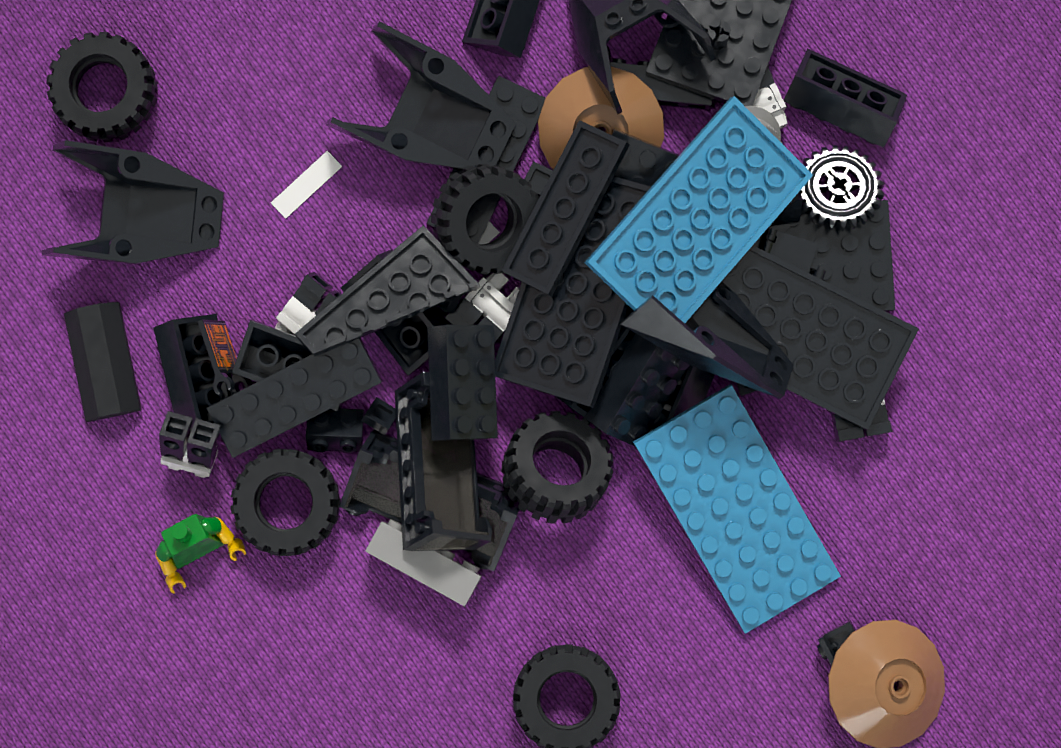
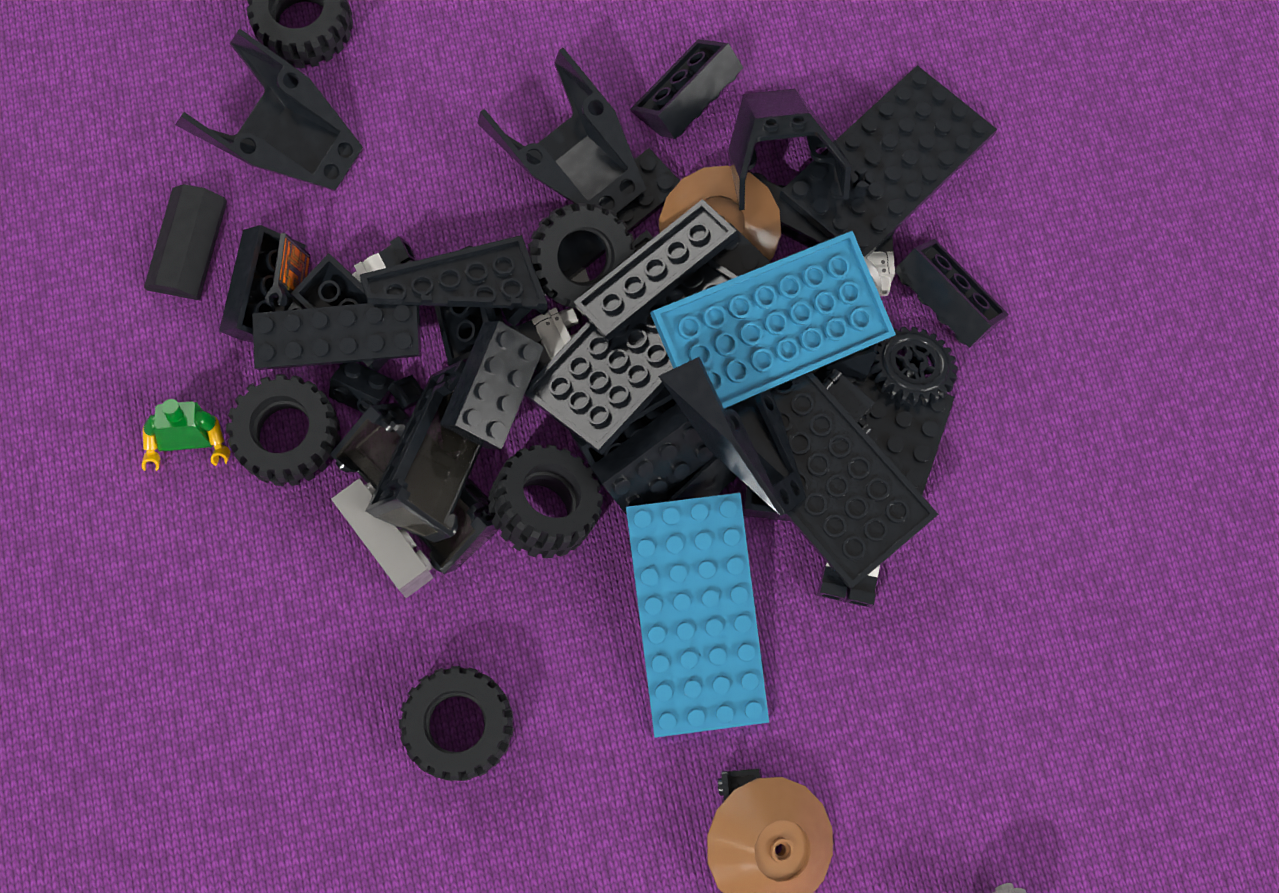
camera: 15 degrees right, 10 degrees down
(187, 450) = (220, 338): black hips -> none
(306, 184) = (438, 171): white sticker -> none

